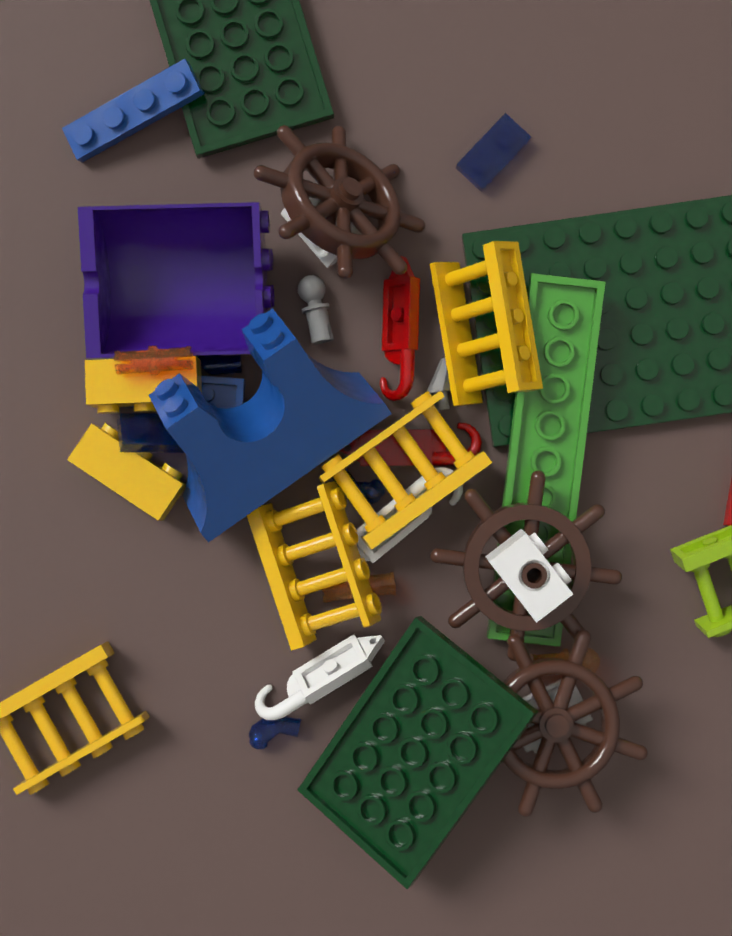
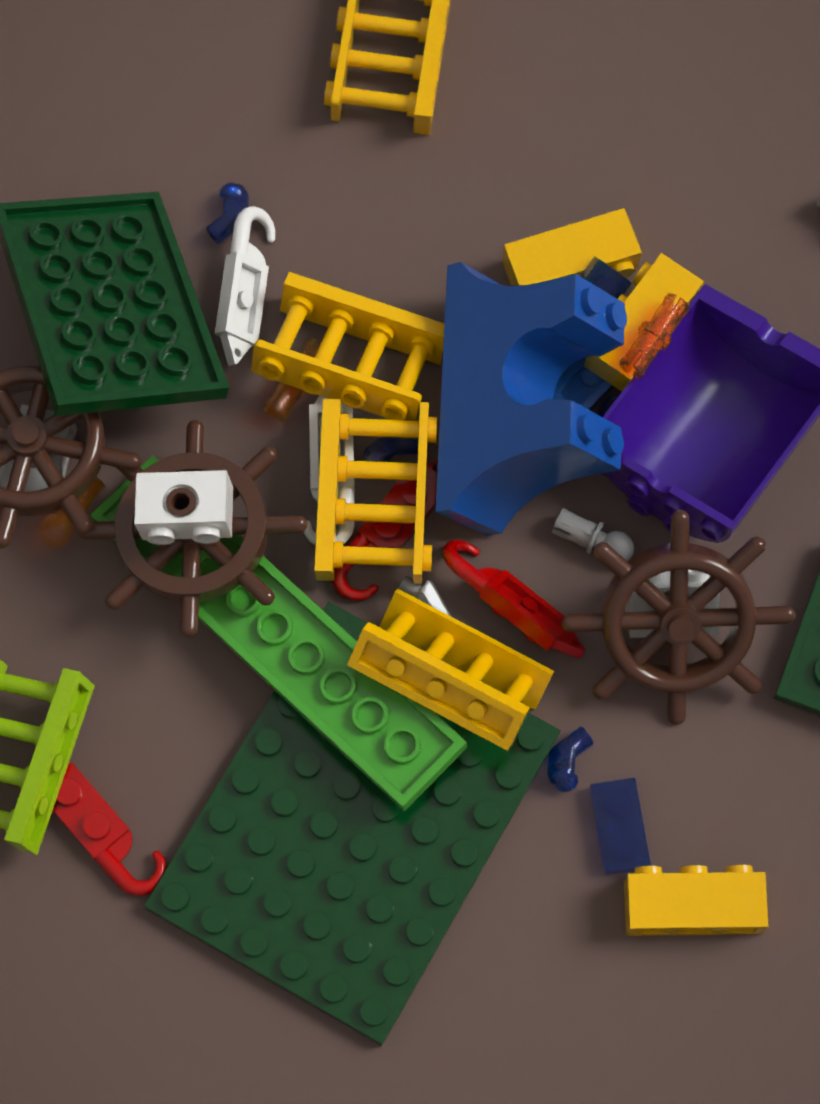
camera: 120 degrees right, 15 degrees down
(480, 218) = (562, 759): none -> clear blue arm
(508, 66) = (695, 901): none -> yellow brick

